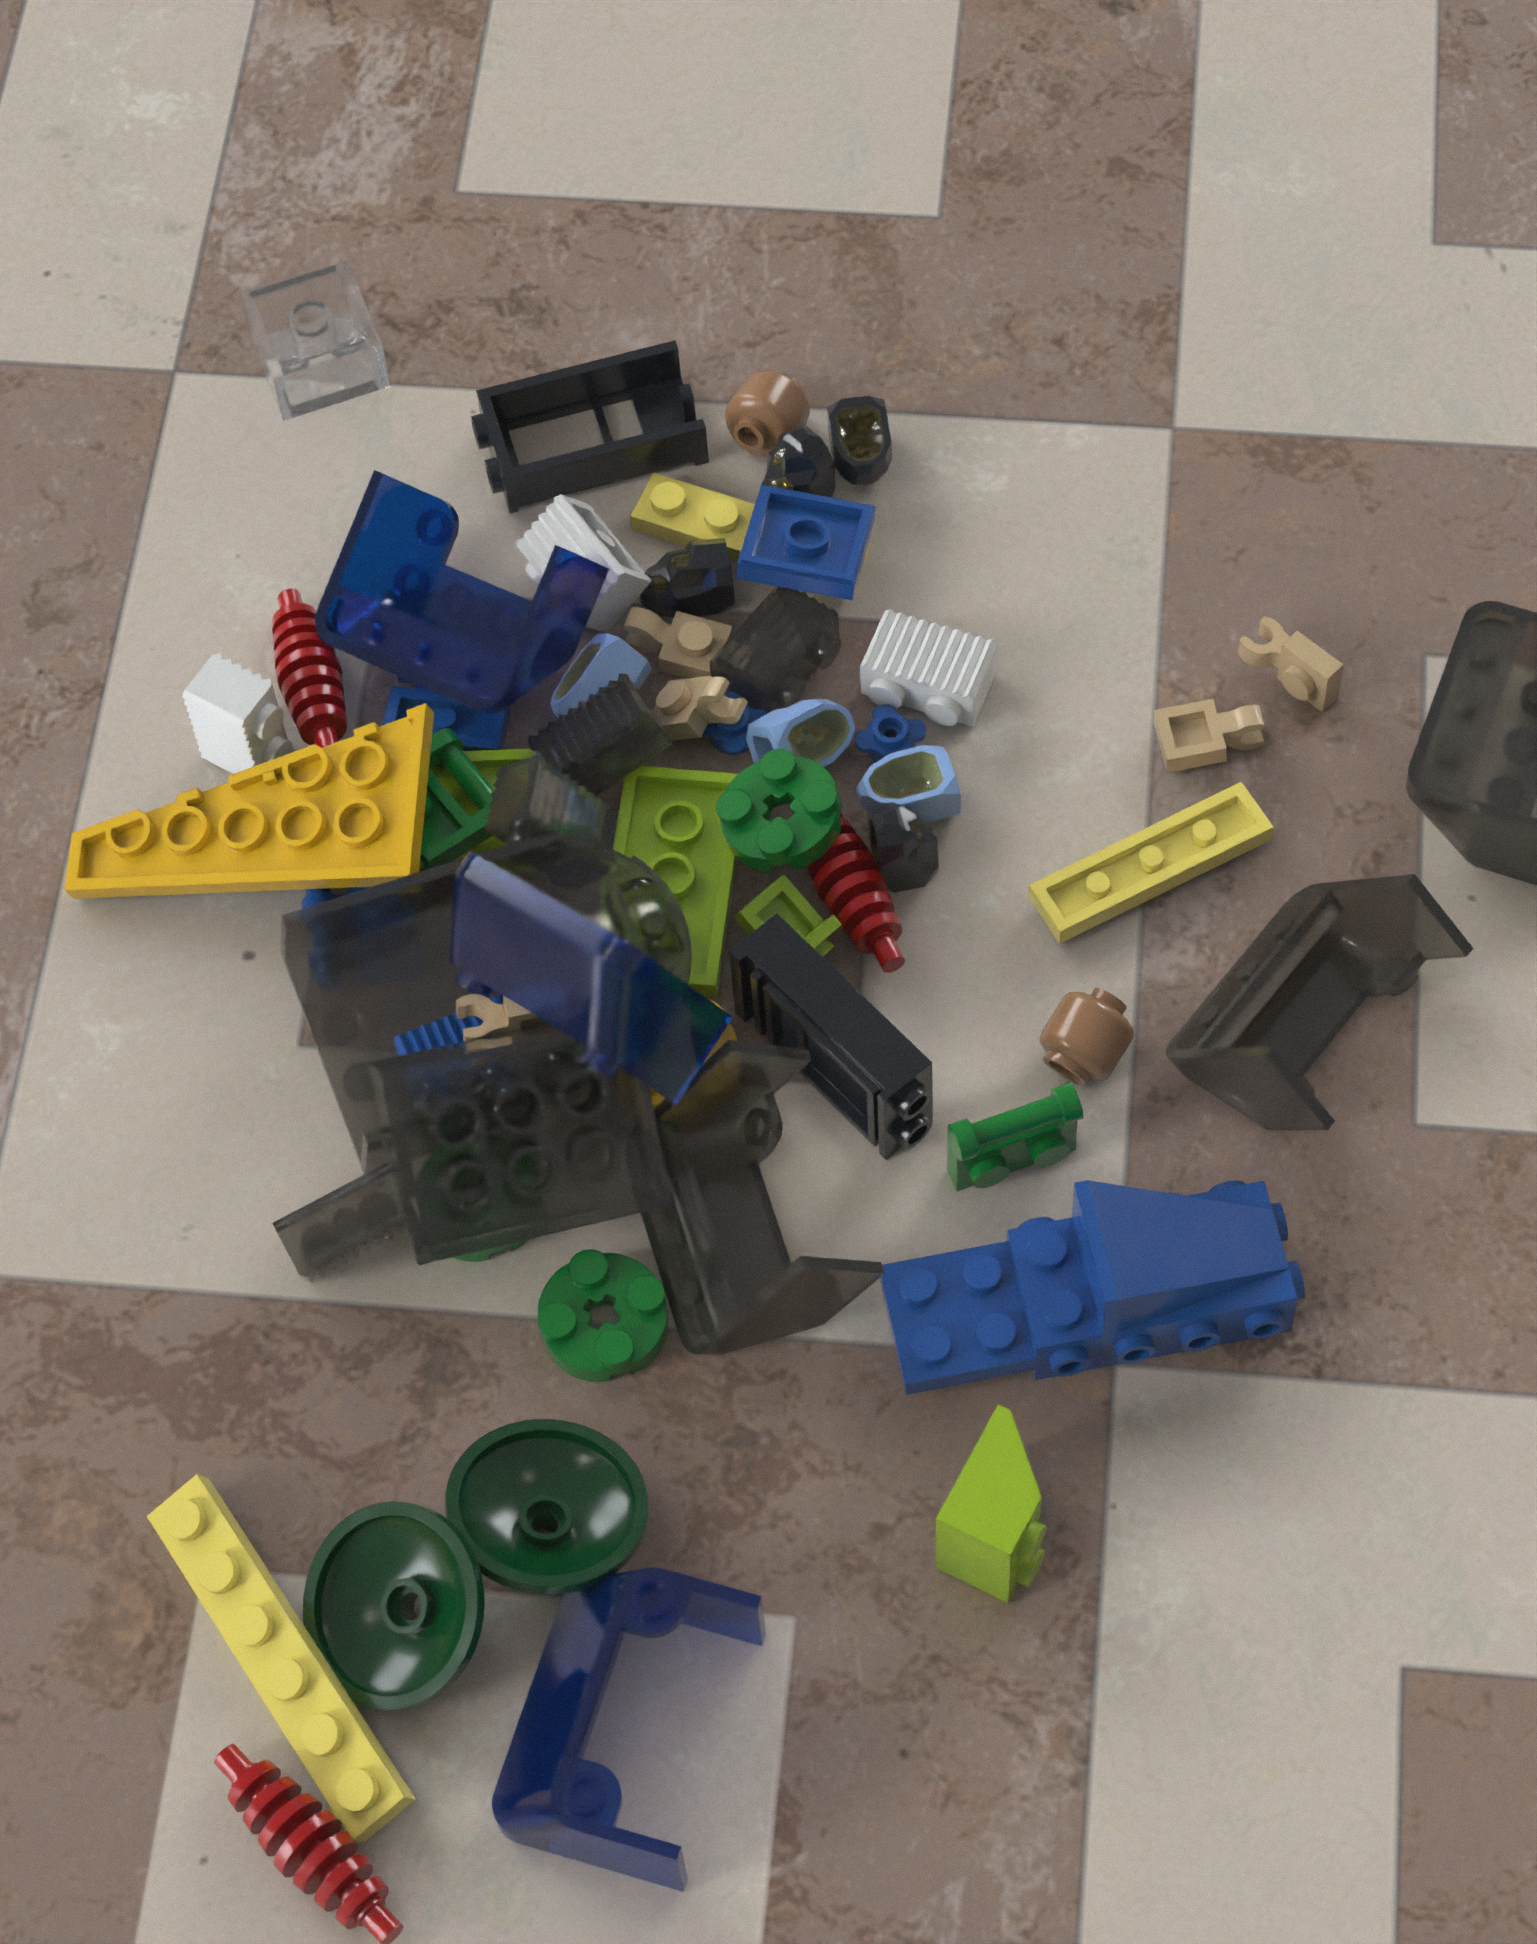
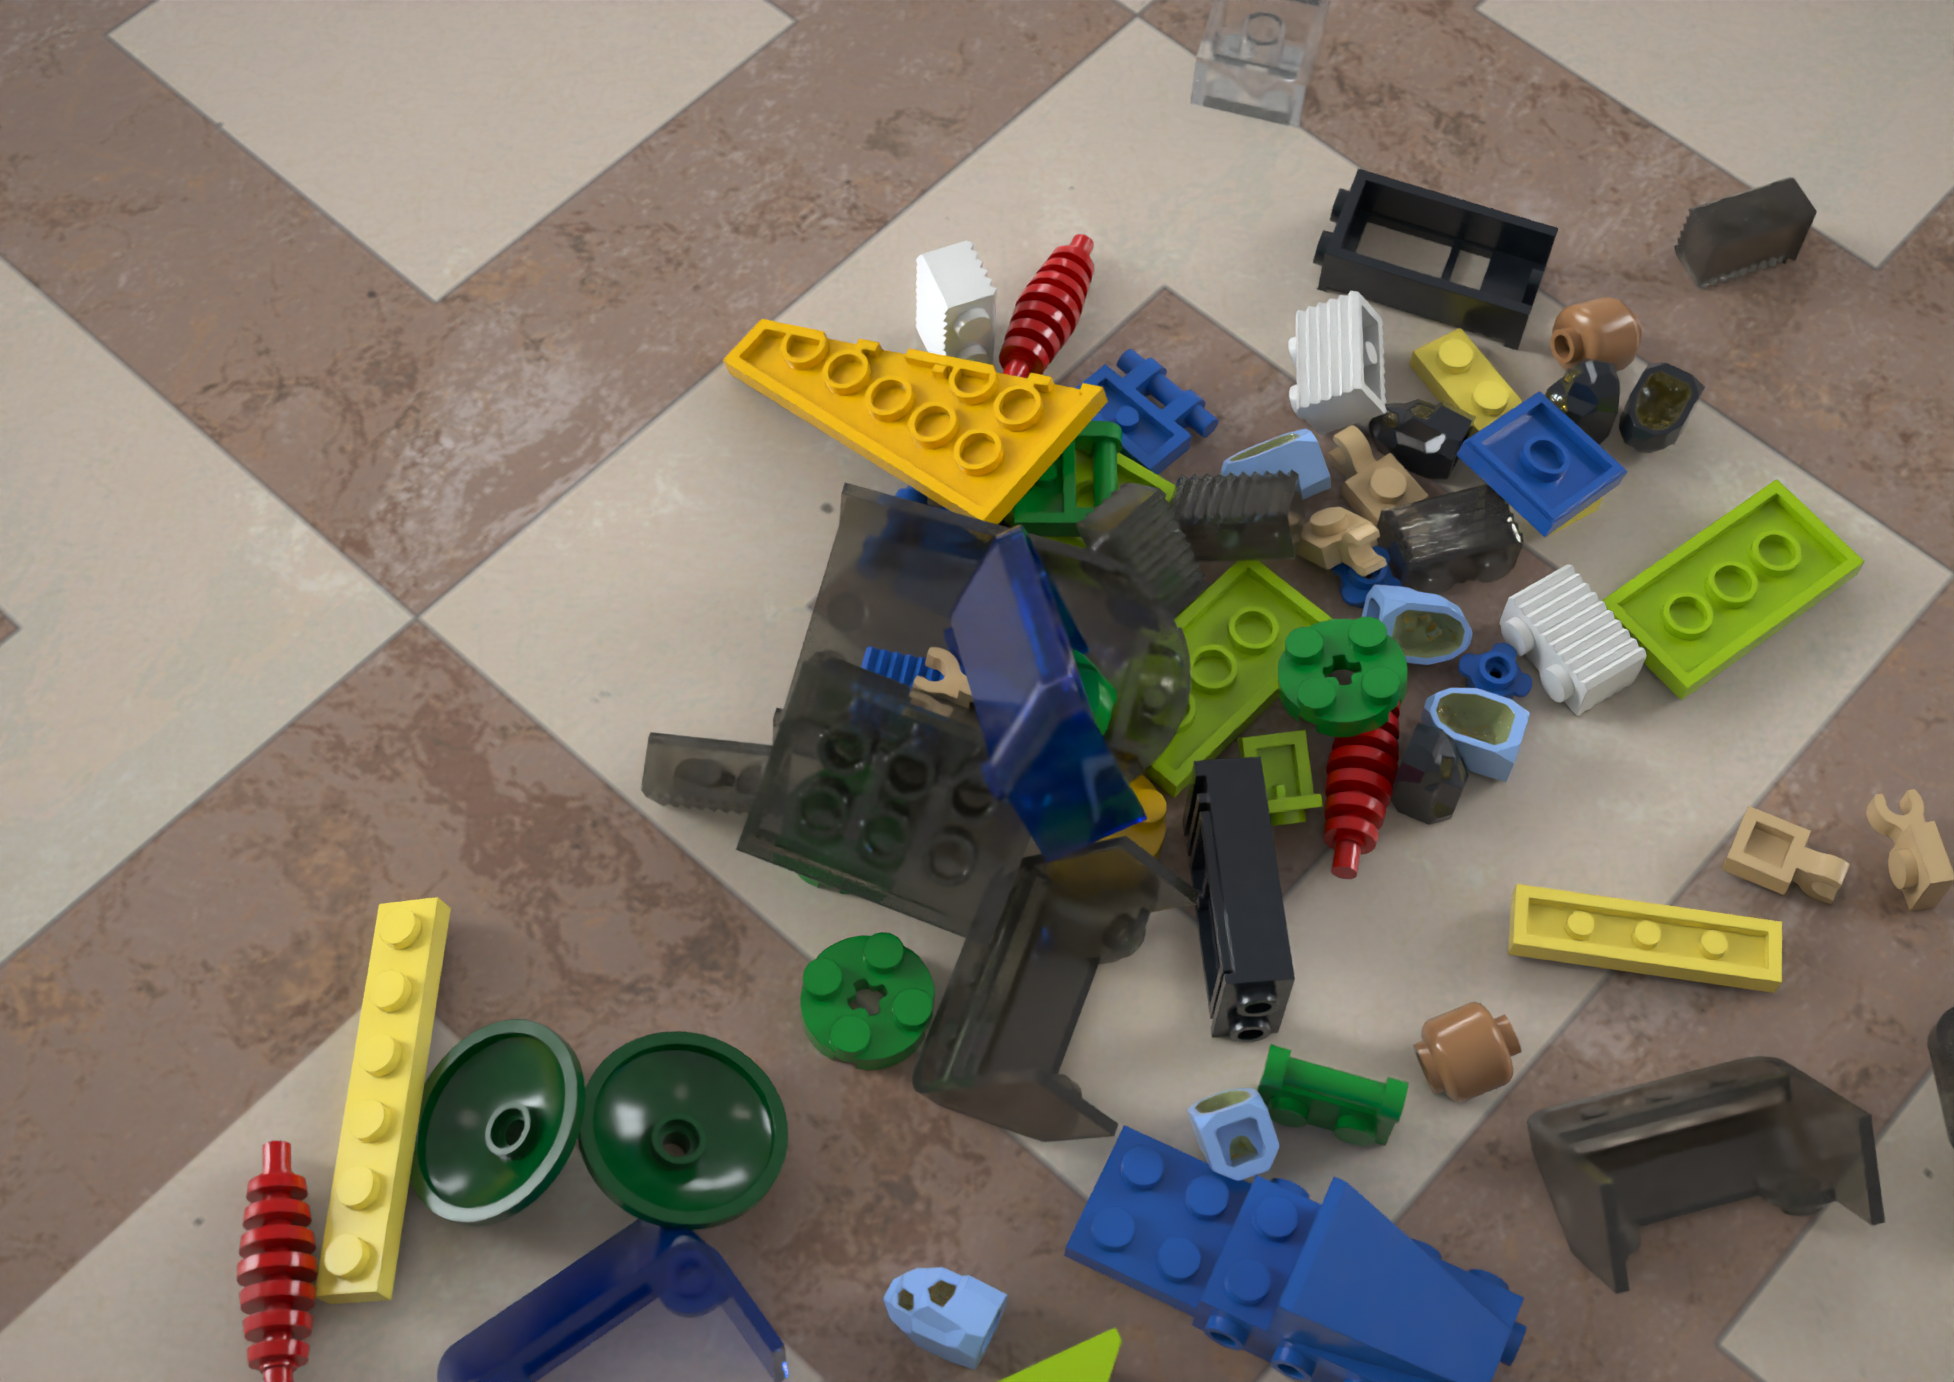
camera: 30 degrees right, 0 degrees up
(440, 626) = (1177, 335): clear blue windscreen -> none
(820, 251) = (1745, 232): none -> clear smoke brick
(851, 1499) = (946, 1313): none -> light blue rock
(965, 1212) = (1235, 1132): none -> light blue rock
(1018, 547) = (1732, 587): none -> lime plate

